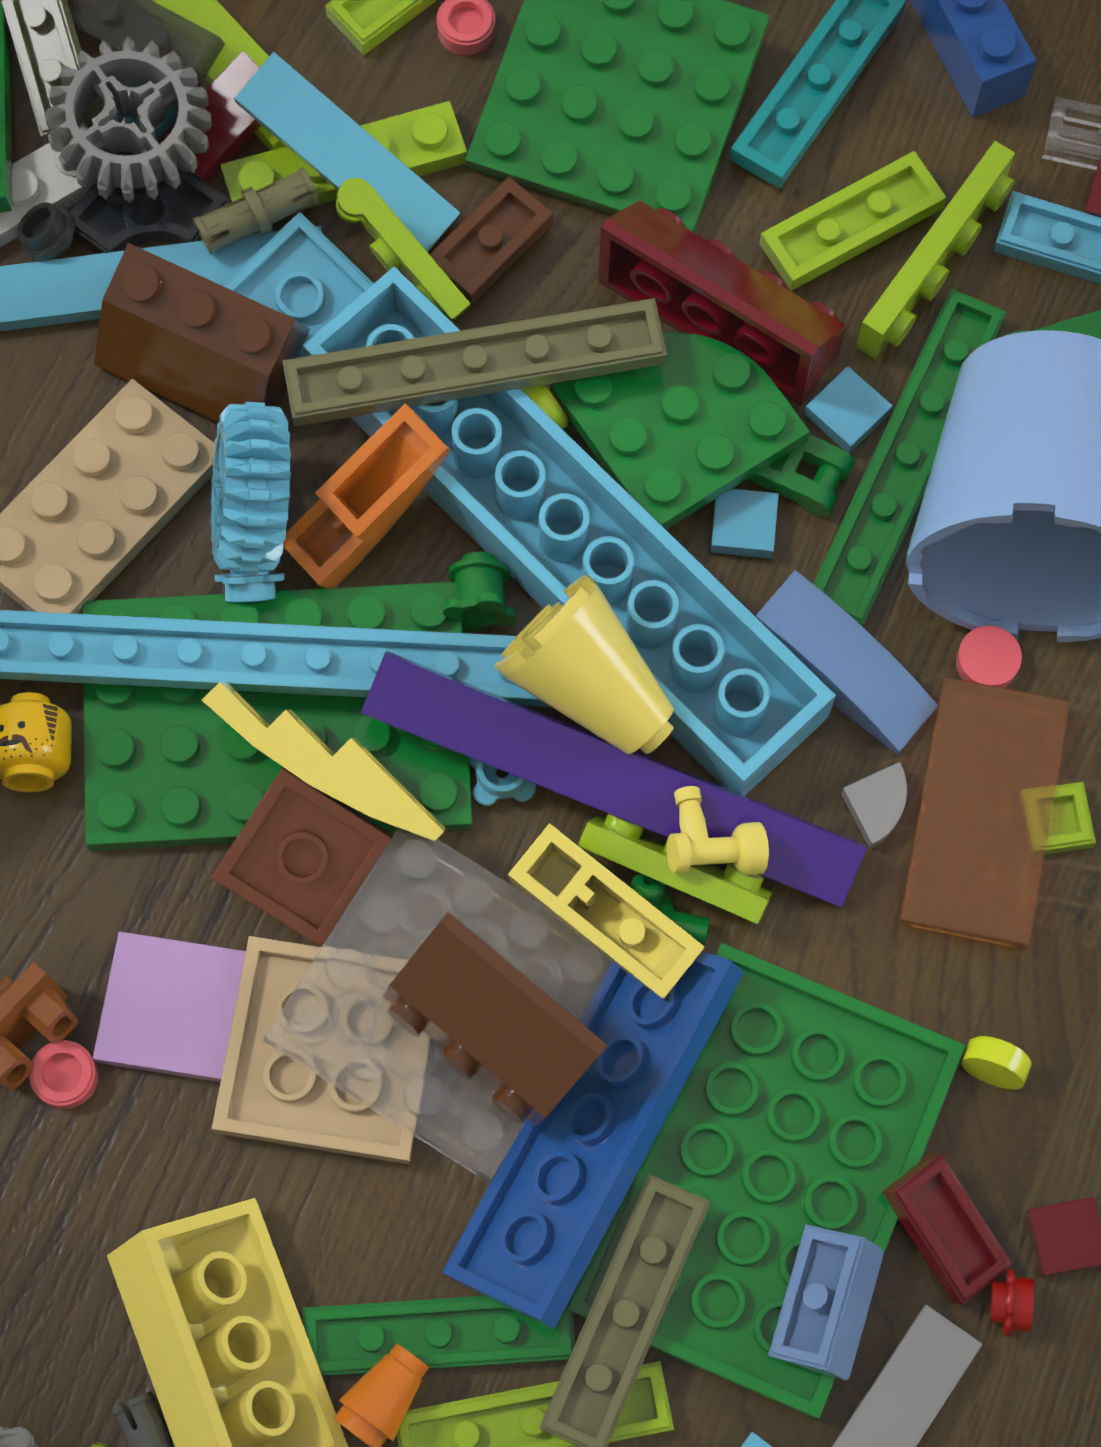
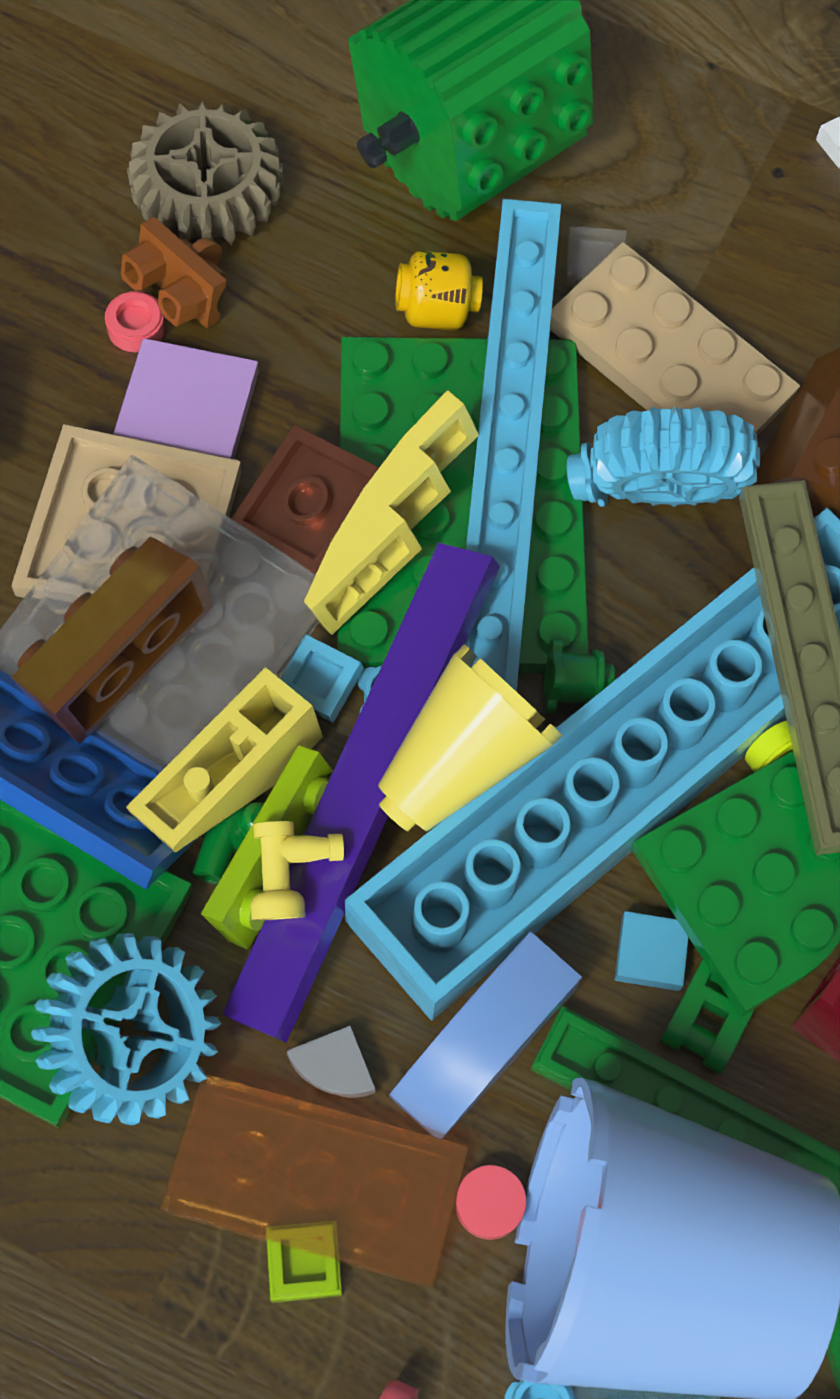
camera: 90 degrees right, 5 degrees down
(365, 498) = (665, 562): orange slope -> none
(494, 837) = (322, 676): none -> medium azure plate
(848, 410) = (784, 1073): medium azure tile -> none
(877, 981) = (118, 1054): none -> medium azure gear
(996, 1062) = (36, 1159): neon yellow tile -> none

